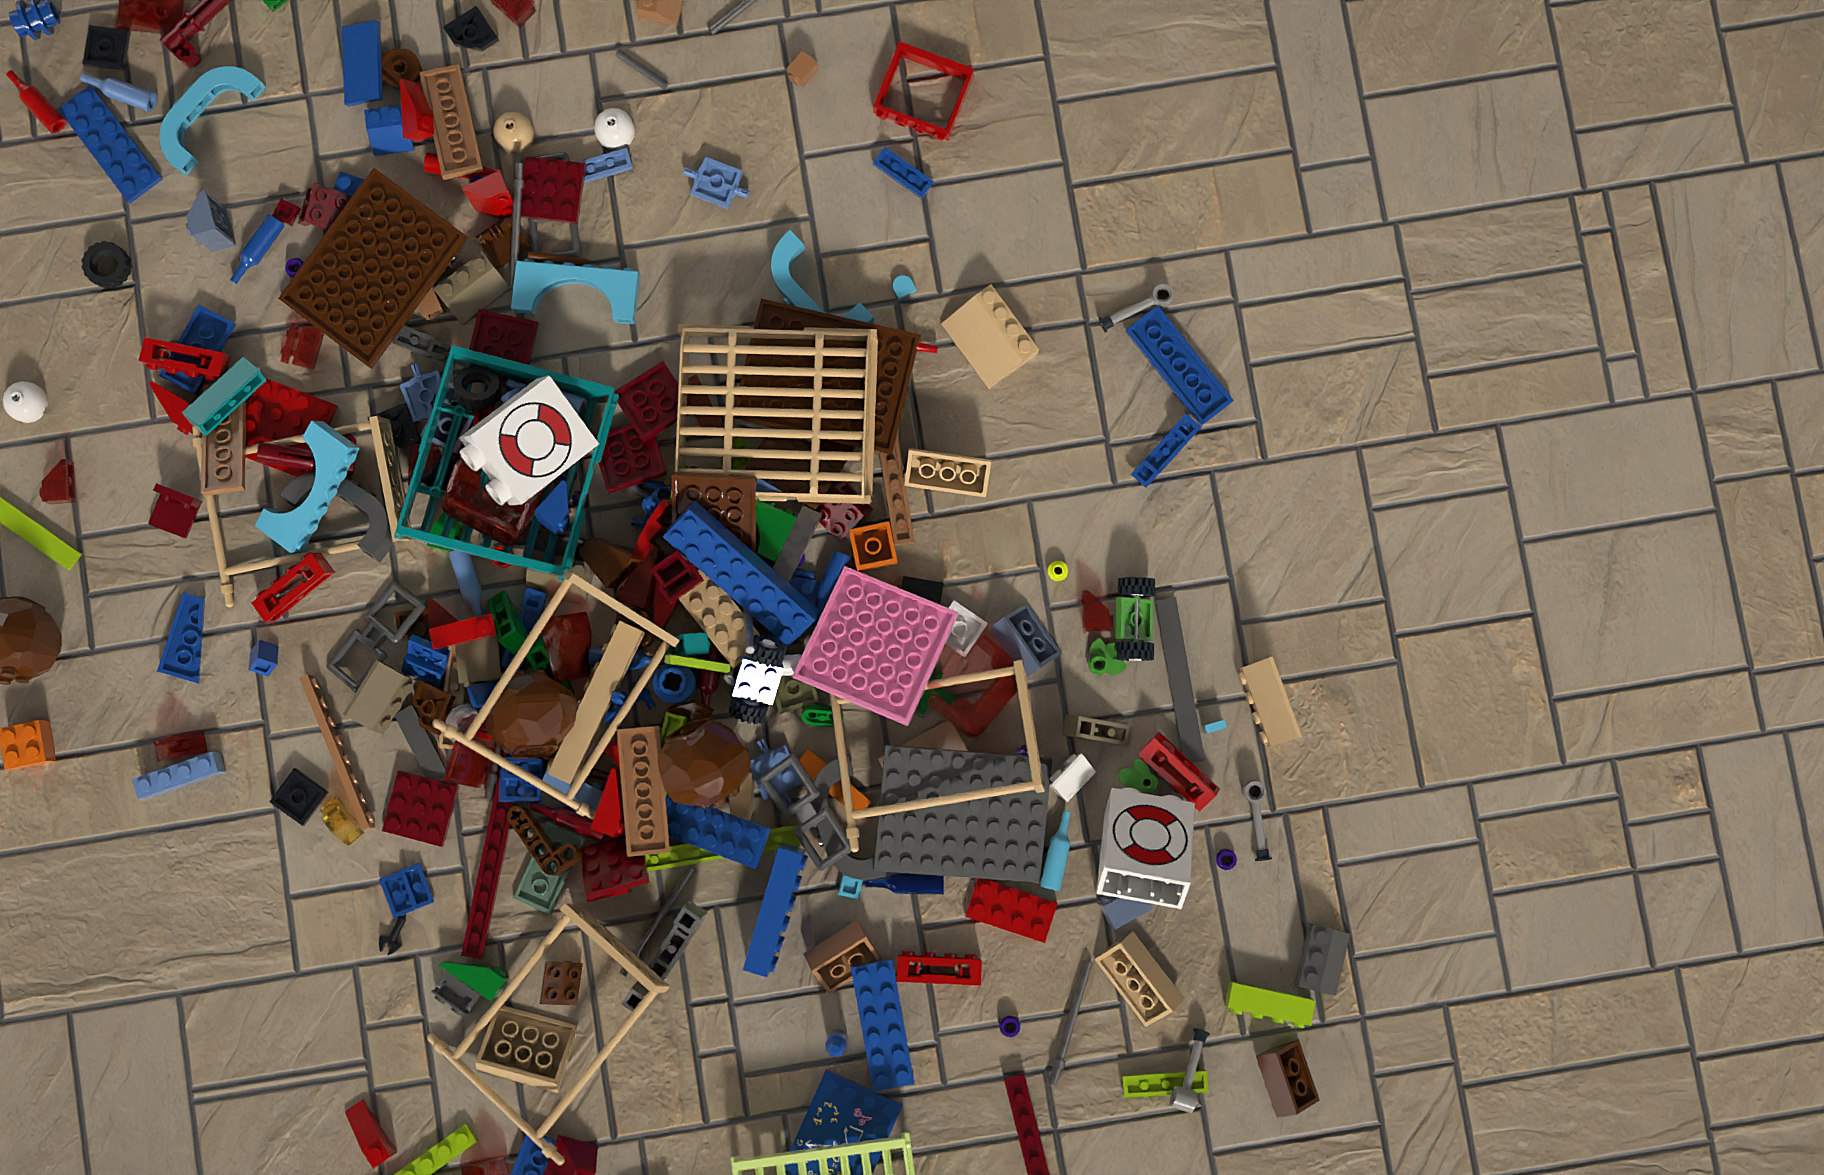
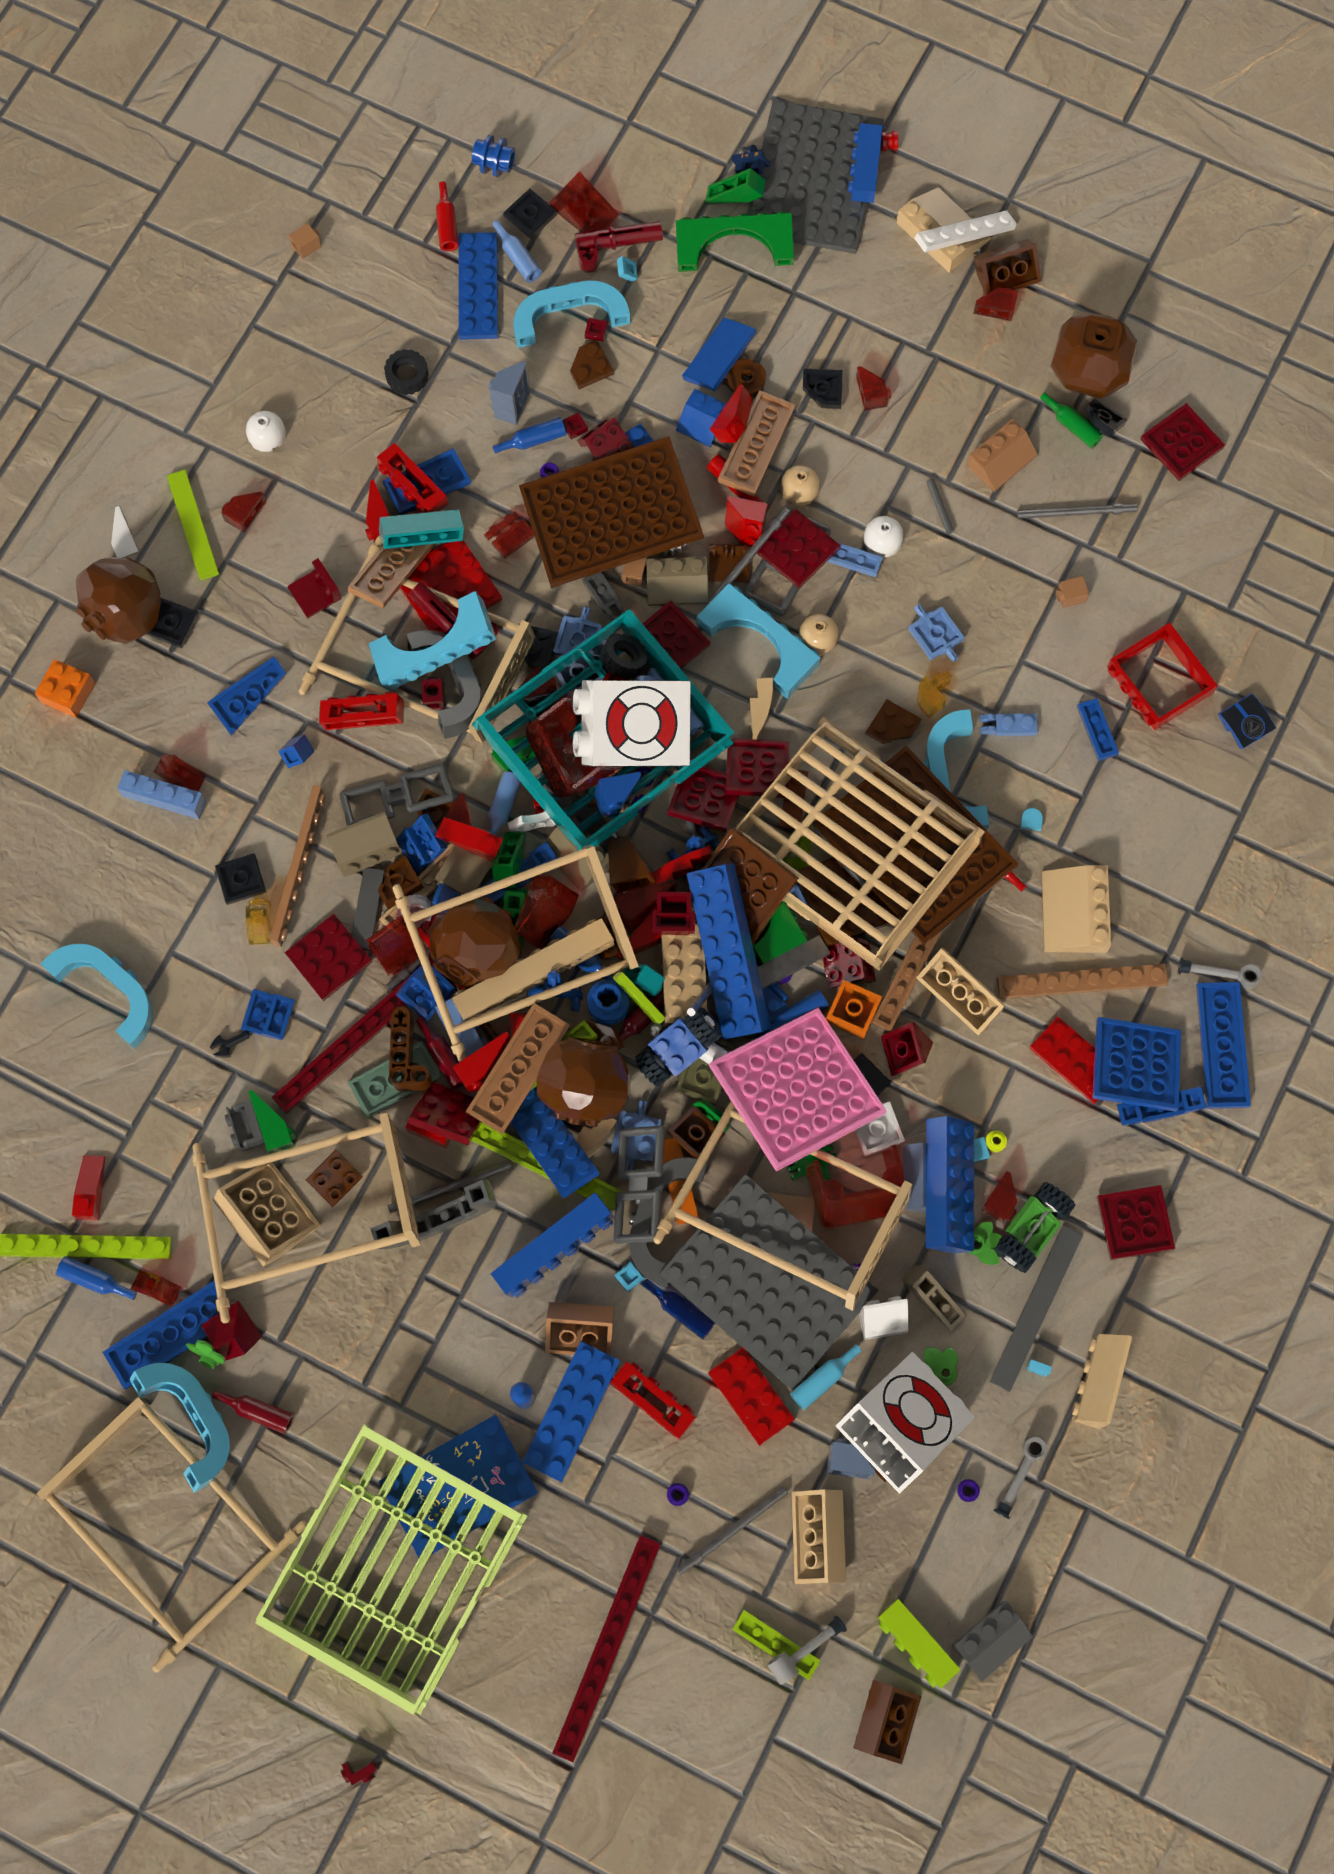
camera: 35 degrees right, 10 degrees down
(76, 623) = (173, 623): none -> black plate
(227, 40) = (627, 269): none -> medium azure plate
(241, 114) = (596, 329): none -> dark red plate
(259, 148) = (590, 365): none -> reddish brown plate
(304, 969) = (73, 956): none -> medium azure arch
(348, 531) = (433, 701): none -> dark red brick
(502, 579) = (530, 822): none -> white tile
(557, 258) = (761, 603): reddish brown bar -> none
(619, 347) = (761, 706): none -> tan slope
(628, 254) = (819, 633): none -> tan cylinder
(735, 285) = (892, 723): none -> reddish brown plate
(747, 241) = (928, 694): none -> clear yellow brick
(818, 738) = (693, 1131): none -> reddish brown slope
(830, 218) = (1010, 724): none -> medium blue hinge
(937, 548) = (906, 1048): none -> dark red slope
(1016, 81) = (1247, 720): none -> black slope
(1034, 392) = (1082, 981): none -> medium nougat plate
(1047, 589) = (981, 1150): none -> medium azure tile
(1047, 634) = (950, 1185): none -> blue brick
(1074, 460) = (1068, 1055): none -> red plate
(1124, 430) = (1137, 1064): none -> blue plate
(1154, 753) = (978, 1351): red brick -> none
(1209, 557) = (1135, 1222): none -> dark red plate

